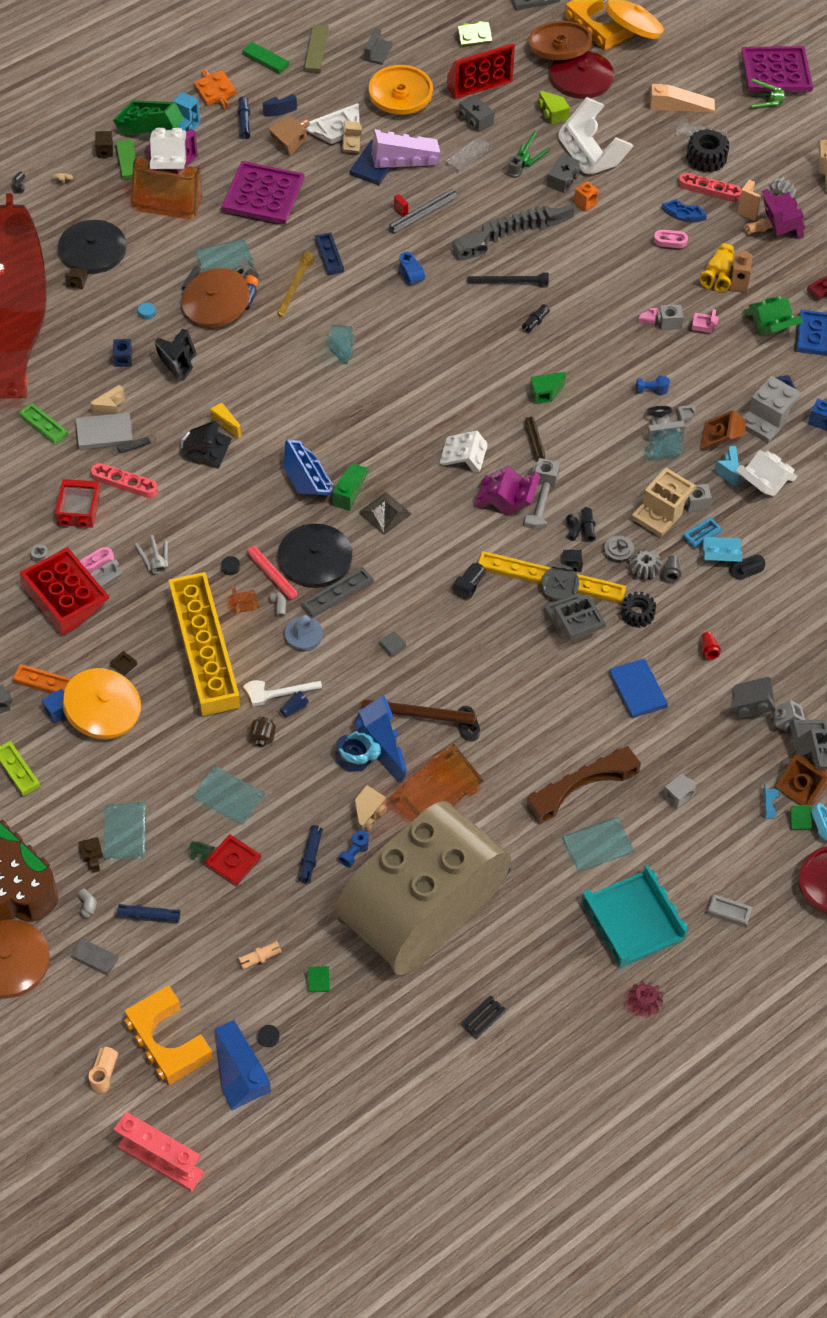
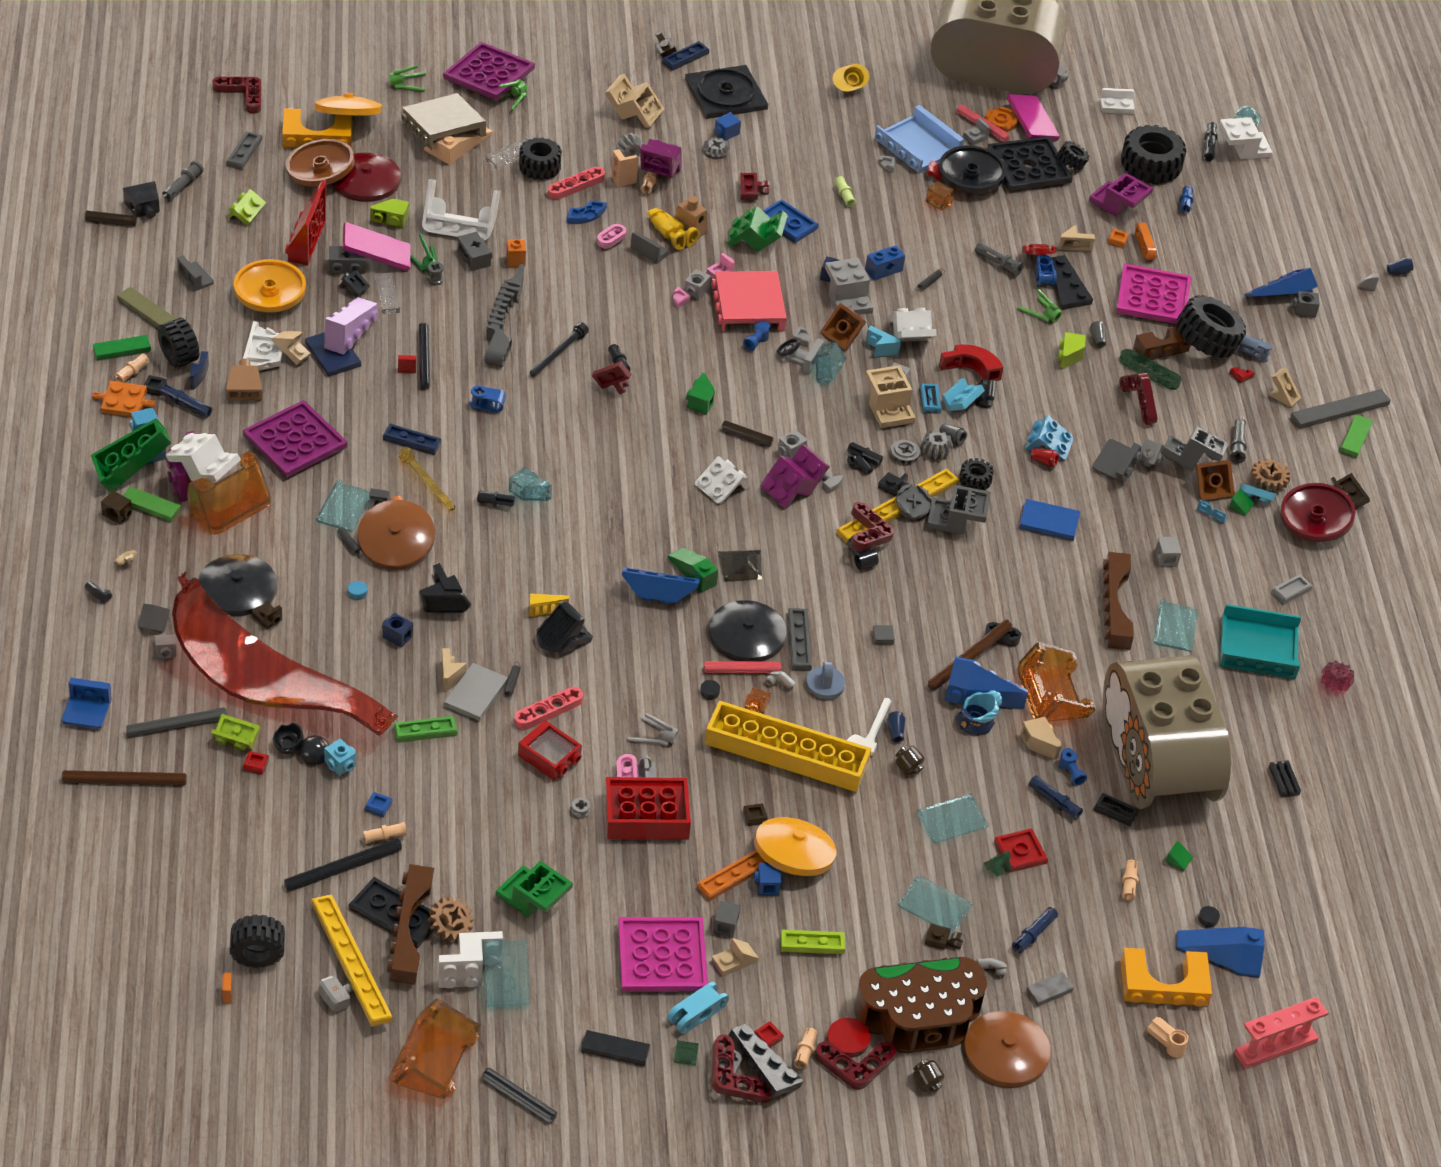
camera: 60 degrees left, 10 degrees down
(246, 92) = (154, 384): none -> black tile
(248, 73) = (132, 368): none -> light nougat pin
(286, 76) = (178, 342): none -> black tyre
(310, 331) = (495, 498): none -> black axle
(331, 922) = (1115, 811): none -> black tile
(455, 131) = (354, 283): none -> black bracket
(494, 581) = (878, 528): none -> dark red beam
(501, 118) = (376, 246): none -> tile
(505, 323) = (613, 375): none -> dark red plate
(683, 267) = (648, 247): none -> dark grey panel
(685, 73) = (442, 118): none -> panel
(688, 357) = (749, 298): none -> coral panel
(707, 27) = (397, 78): none -> bright green plant
(735, 639) = (1051, 435): none -> dark azure bracket
(778, 534) = (974, 358): none -> red arch

